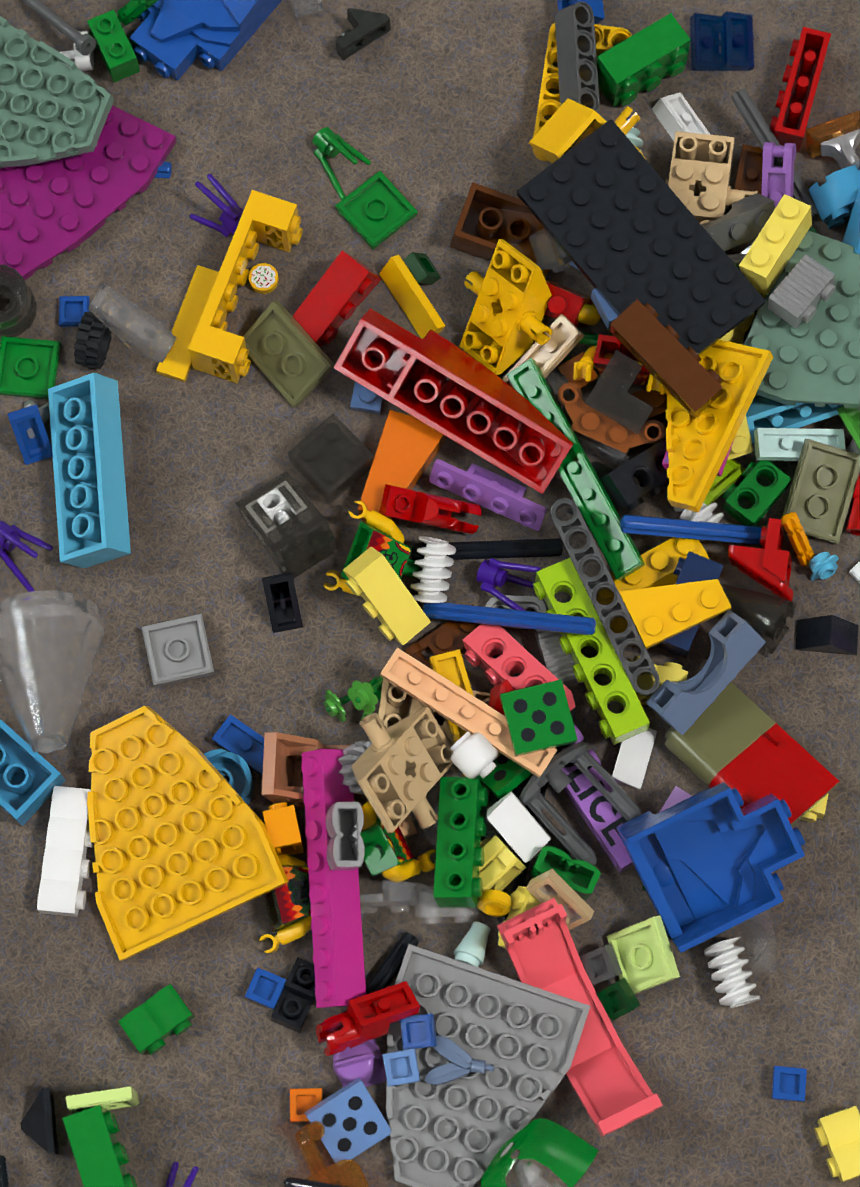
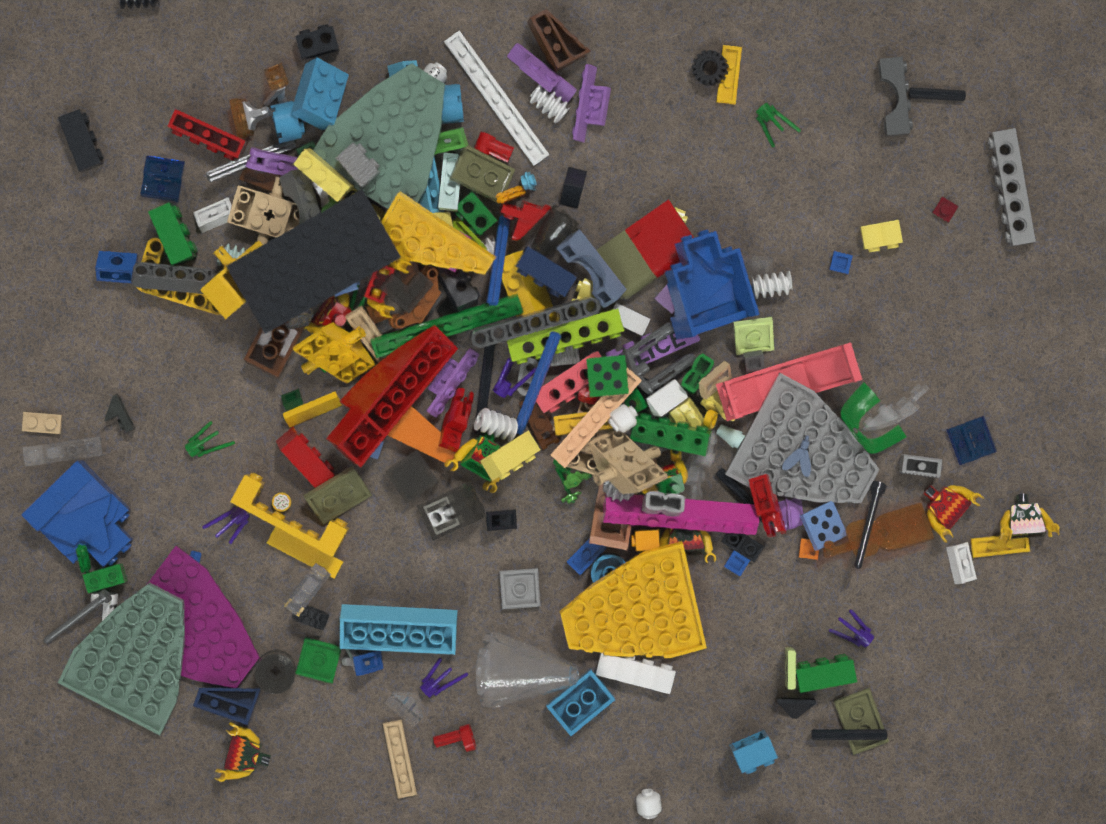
camera: 85 degrees left, 15 degrees up
(72, 309) = (284, 626): blue tile -> none
(157, 1020) = (745, 630): green brick -> none
(376, 210) = (245, 422): green tile -> none
(401, 1067) = (798, 489): medium blue plate -> none
(418, 1032) = (779, 476): blue tile -> none
(618, 999) = (776, 354): dark green plate -> none
(667, 358) = (394, 259): reddish brown brick -> none
(673, 608) = (551, 282): yellow wing -> none

